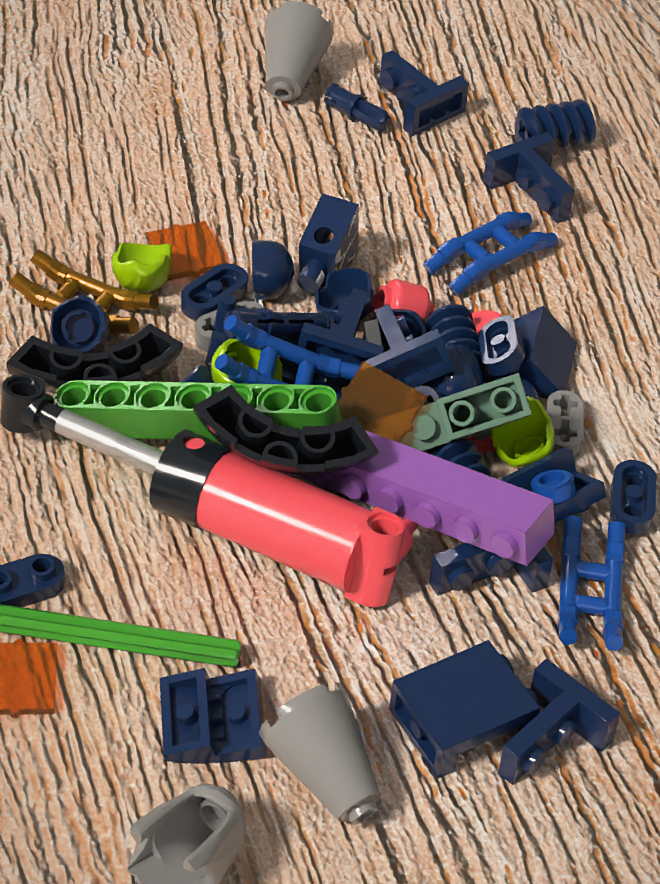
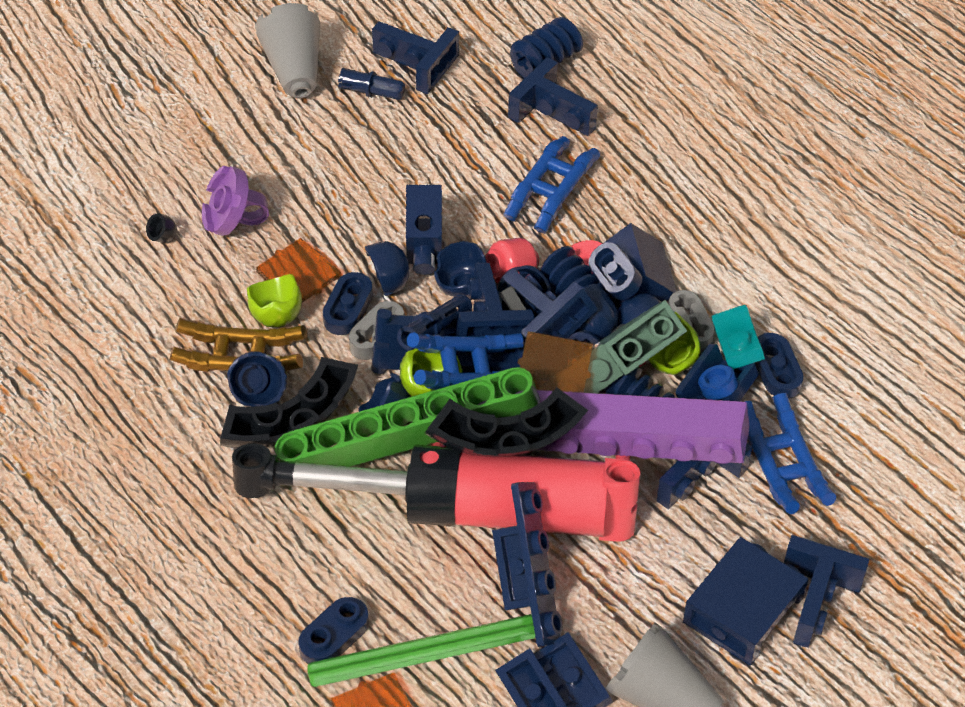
camera: 20 degrees left, 5 degrees up
(73, 169) = (161, 228): none -> black hinge
(151, 163) = (228, 201): none -> medium lavender tile
(243, 583) = (525, 564): none -> dark blue bracket
(602, 448) = (737, 337): none -> teal slope

